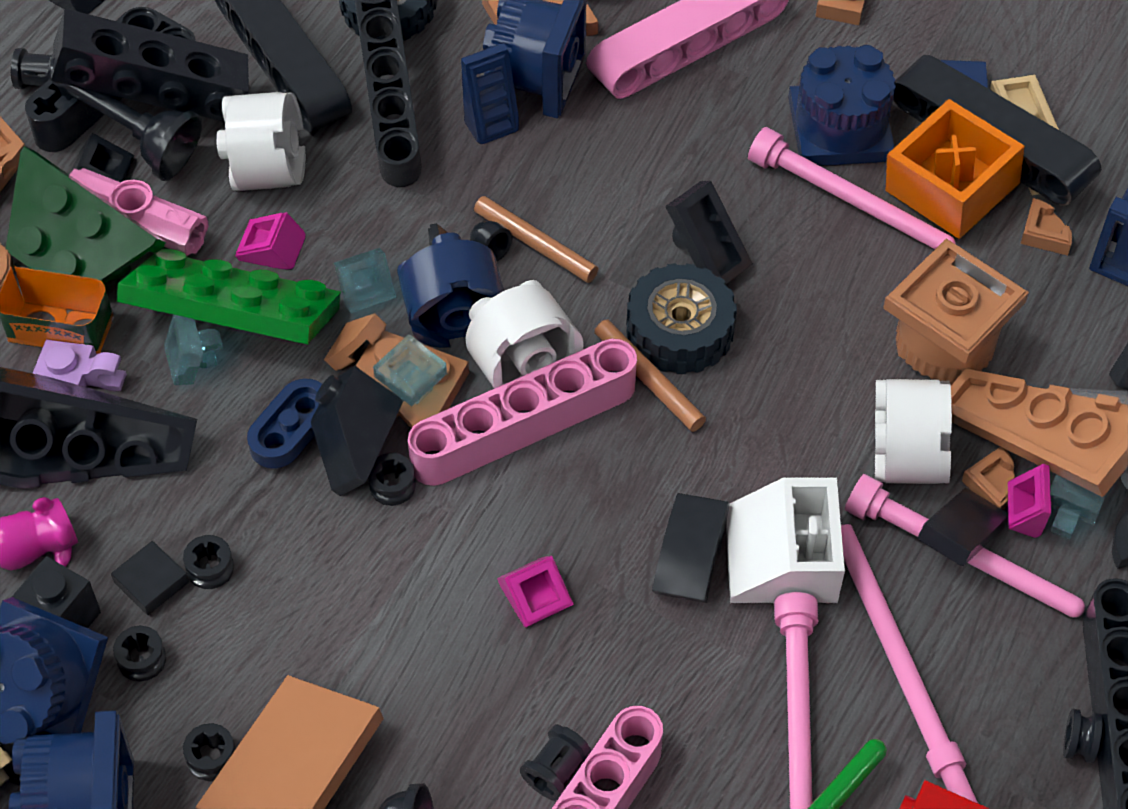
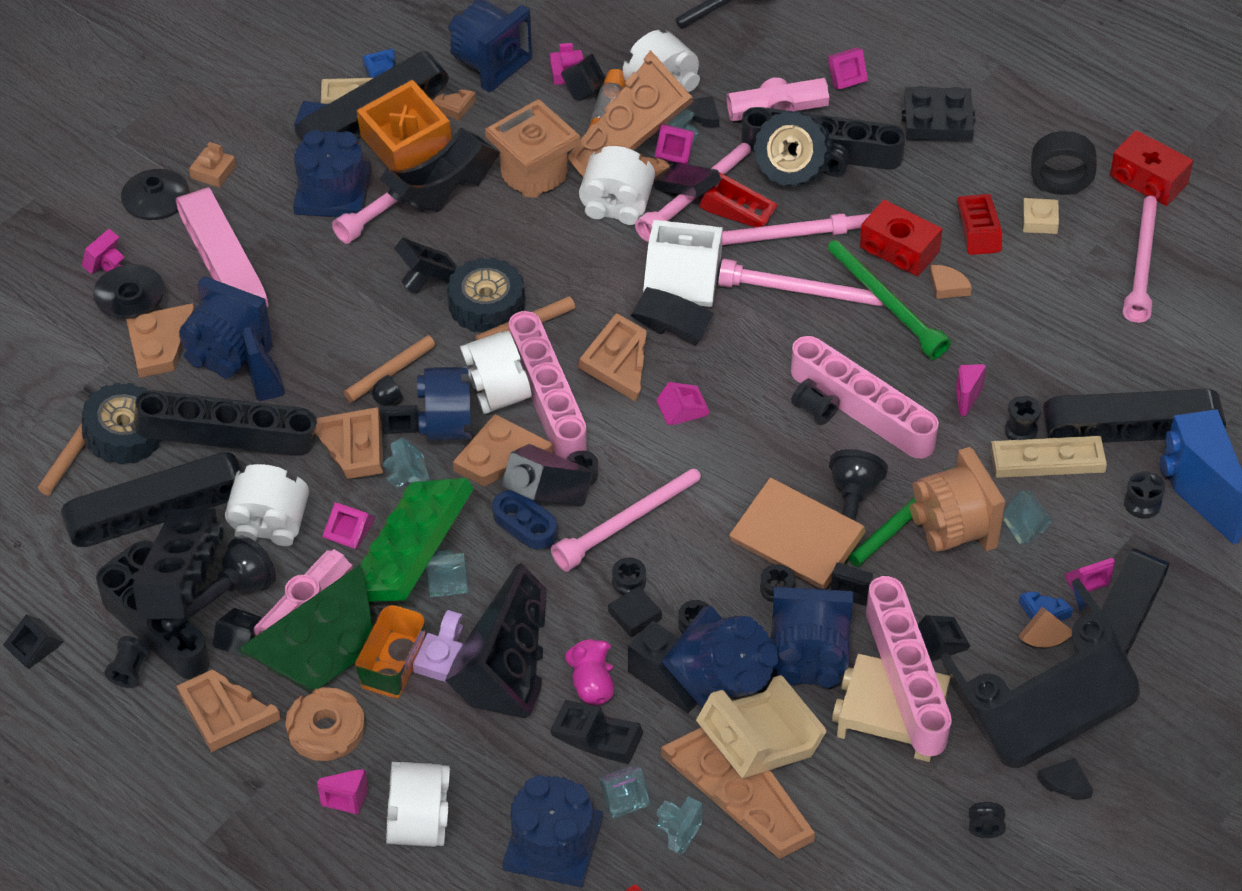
camera: 80 degrees left, 5 degrees down
(238, 483) = (569, 552): none -> bright pink piece
(352, 337) = (460, 467): nougat tile -> none
(395, 219) = (353, 441): none -> nougat wing
(410, 370) = (513, 429): clear light blue tile -> none
(600, 491) = (617, 356): none -> nougat wing
(865, 217) = (432, 182): none -> black arch
(971, 574) = (719, 202): none -> red slope
(1061, 659) = (812, 151): none -> black wheel
(1093, 132) = (379, 62): none -> blue tile

